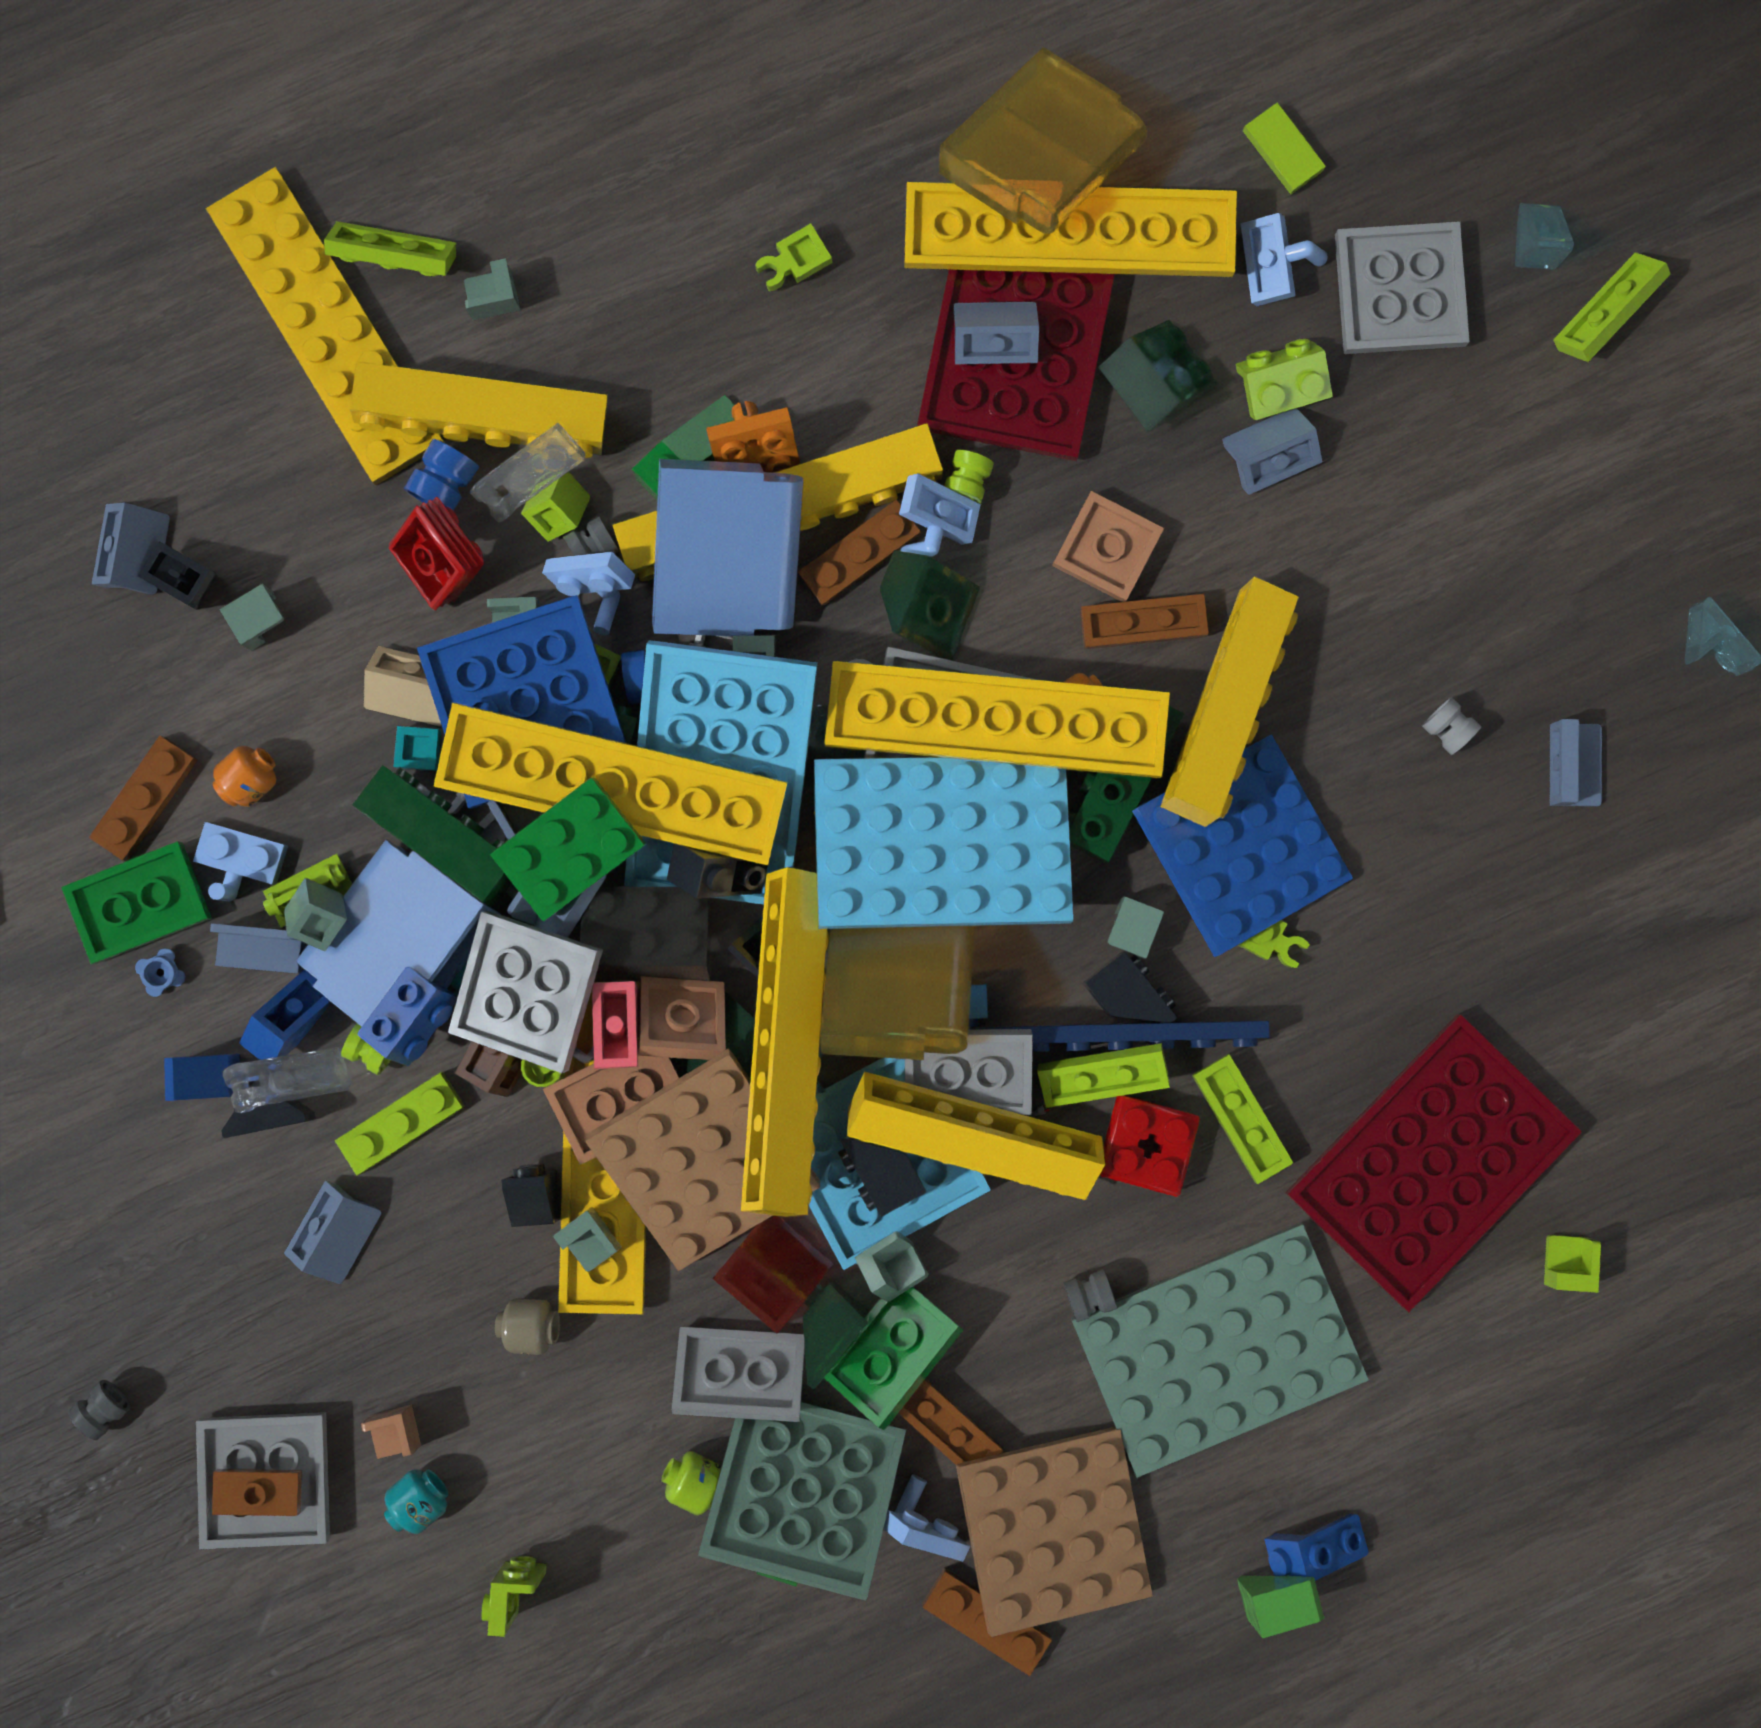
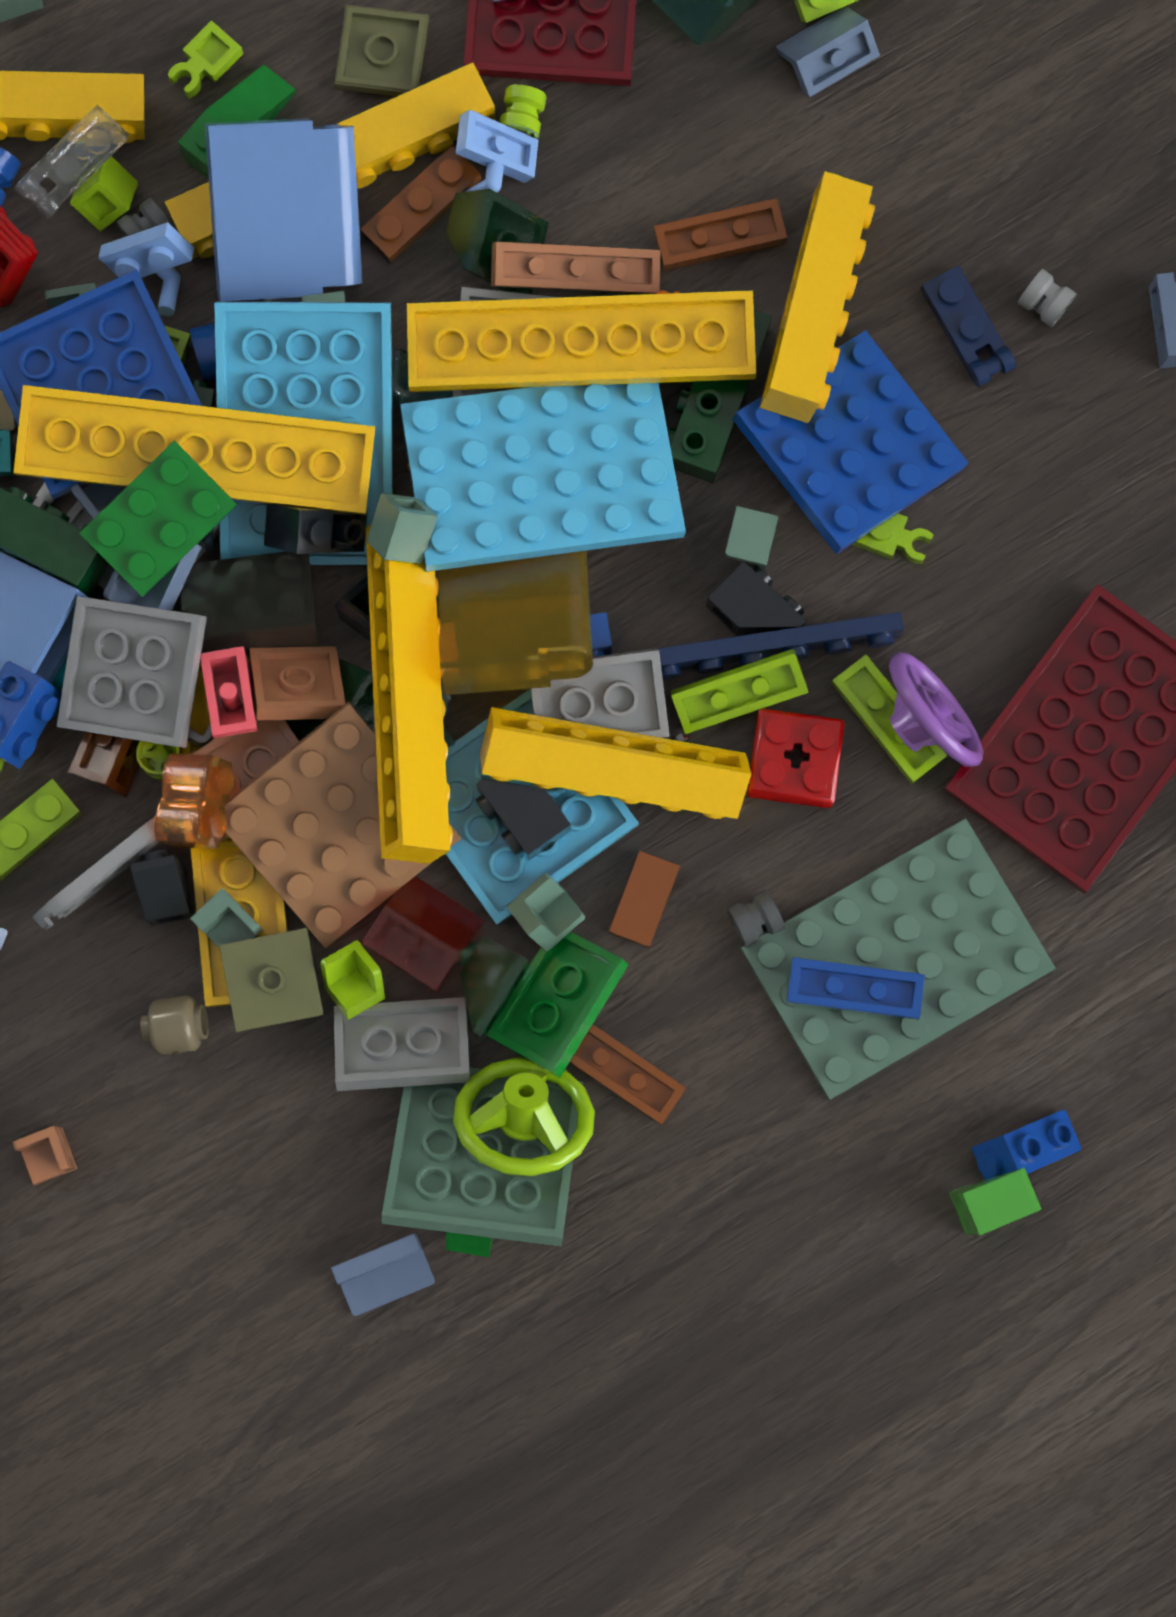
camera: 10 degrees left, 5 degrees down
(415, 1501) = (78, 1221): teal head -> none
(480, 1172) = (97, 875): none -> light grey tile
(502, 1603) = (182, 1306): lime bracket -> none
(569, 1126) = (193, 801): none -> clear orange brick
(623, 1298) = (271, 979): none -> olive plate
(673, 379) = (208, 55): none -> lime plate
(691, 1482) = (365, 1163): lime head -> none
(693, 1587) = (384, 1274): none -> sand blue panel
(700, 1307) = (352, 979): none -> lime panel
(755, 439) = (301, 94): orange plate -> none
(800, 886) = (401, 528): none -> sand green panel
(840, 397) = (381, 51): none -> olive plate
(845, 1467) = (522, 1115): none -> lime piece
(916, 1531) = (602, 1173): light blue plate -> none
(961, 1607) = (694, 1271): dark orange plate -> none
(986, 1261) = (644, 899): none -> dark orange tile
(1000, 640) = (575, 268): none -> nougat plate
(1053, 1531) = (750, 1164): medium nougat plate -> none
(1108, 547) = (673, 165): nougat plate -> none
(1176, 1380) = (855, 988): none -> blue plate
(1285, 1126) = (930, 713): none -> medium lavender piece
(1370, 742) = (967, 325): none -> dark blue plate

